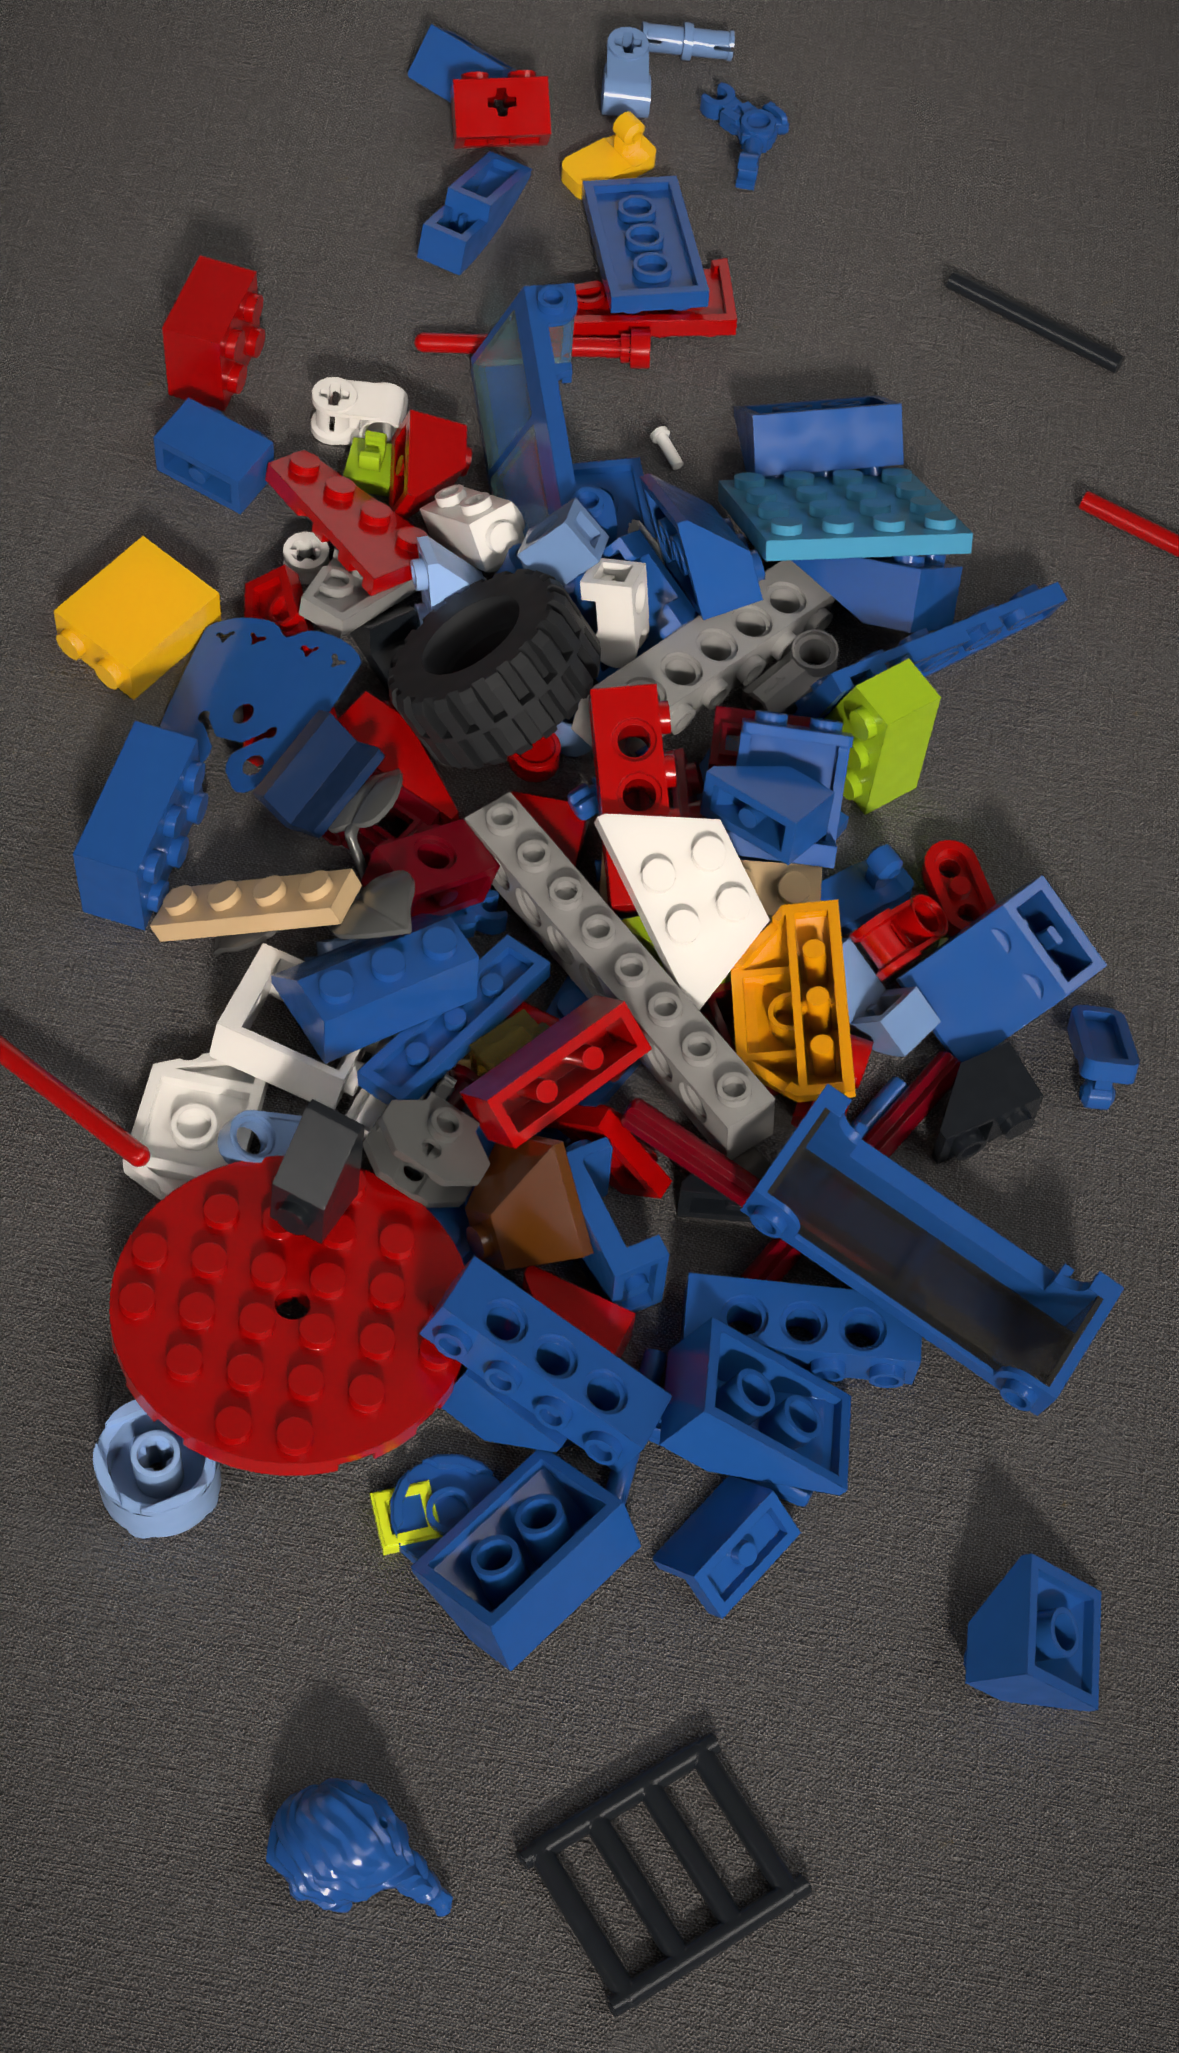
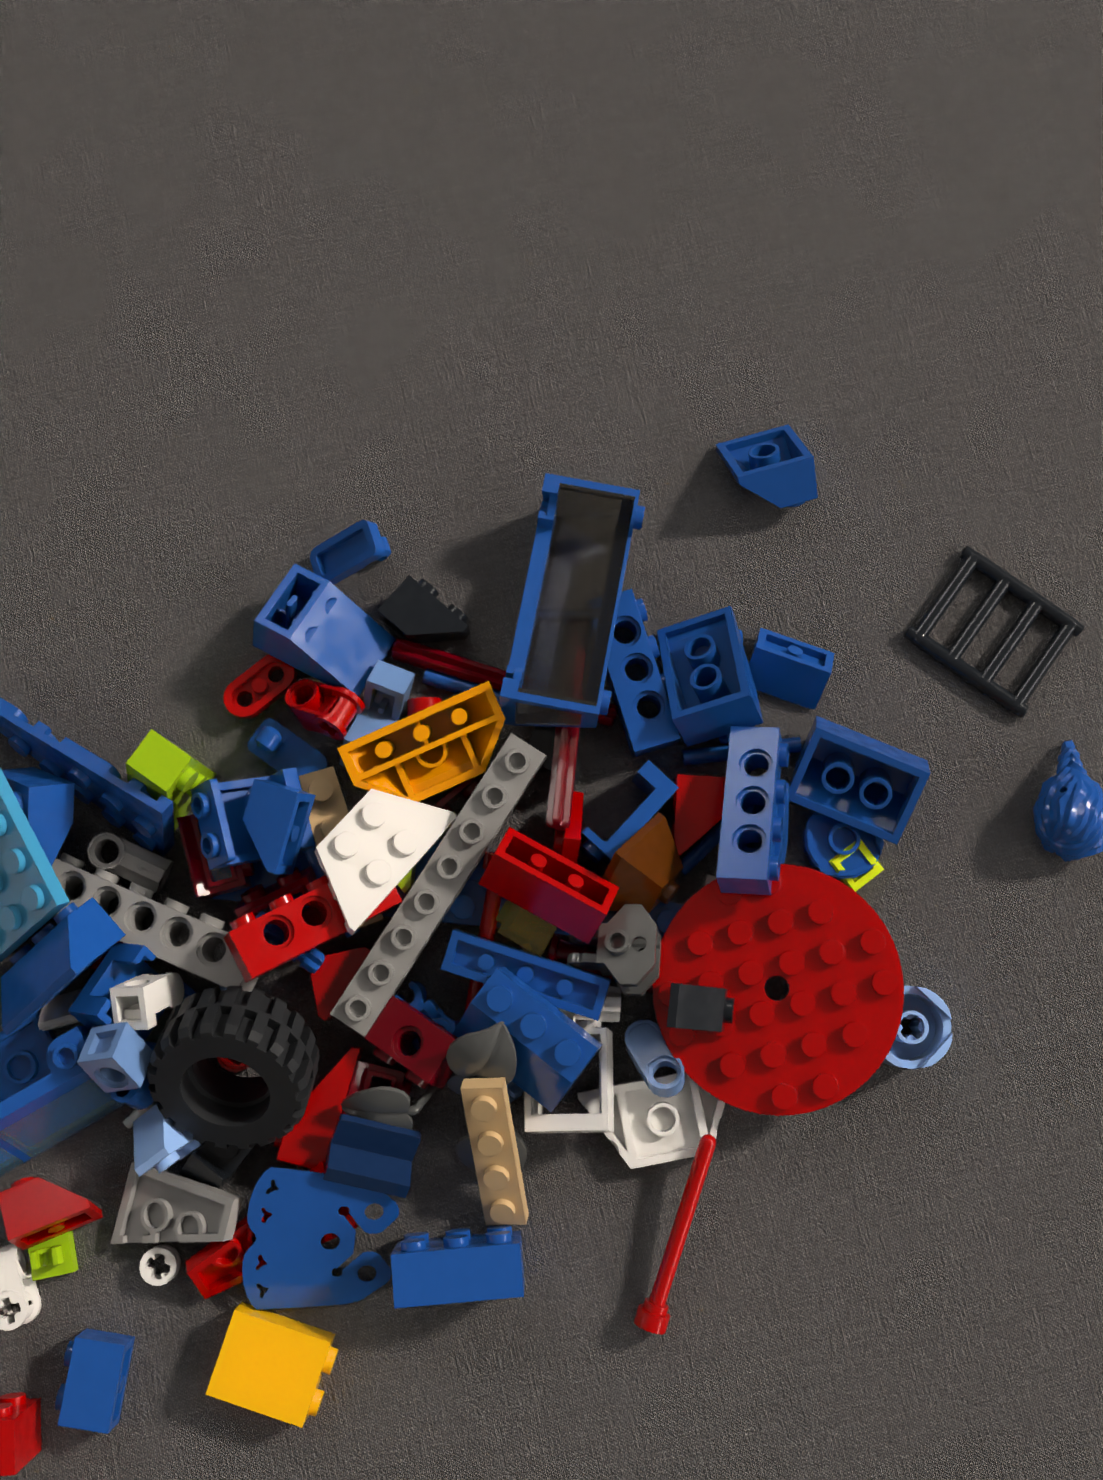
camera: 110 degrees left, 20 degrees up
(358, 525) = (121, 1242): red wing -> none
(474, 525) = (95, 1143): white brick -> none

